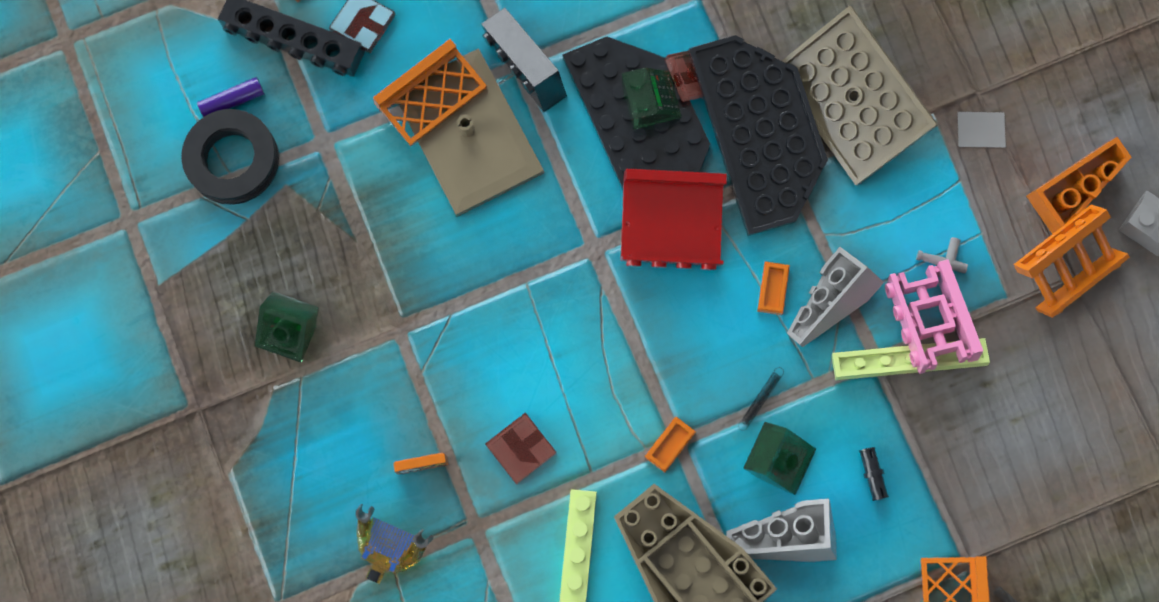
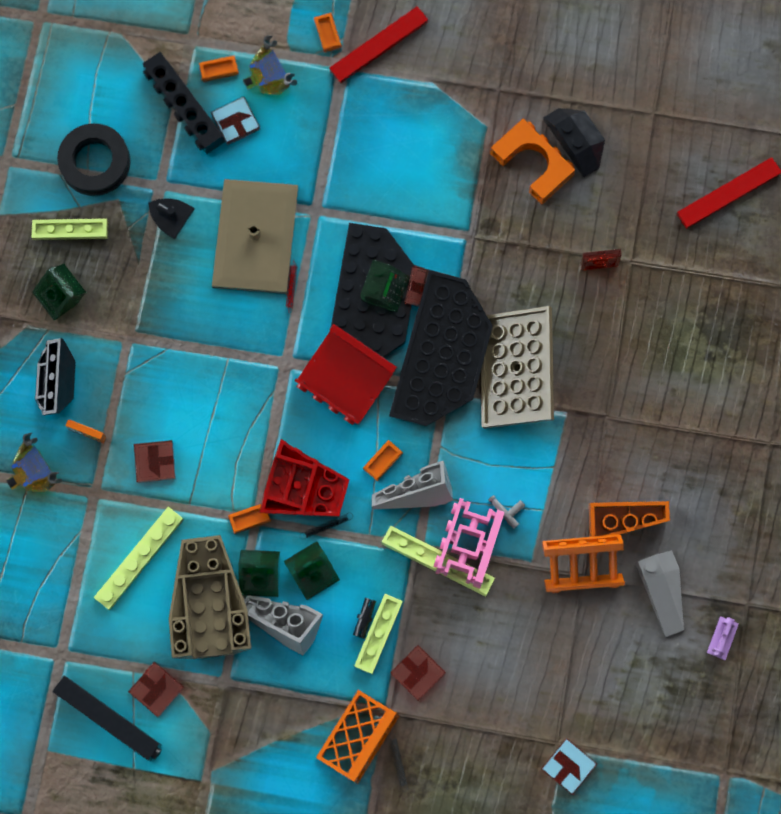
camera: 30 degrees right, 0 degrees up
(231, 97) = (118, 120): dark purple piece -> none
(252, 250) = (69, 229): none -> yellowish green plate
(346, 425) = (55, 377): none -> black wedge
(356, 166) = (170, 215): none -> black shield
(417, 75) = (245, 179): orange fence -> none
(524, 59) = (321, 210): wedge -> none
(543, 166) = (291, 287): none -> red piece
(705, 371) = (302, 485): none -> red wedge
(724, 497) = (259, 573): none -> clear green slope
(901, 481) = (378, 634): none -> yellowish green plate
(972, 496) = (417, 672): none -> clear red tile
(981, 129) = (591, 442): light grey sticker -> none

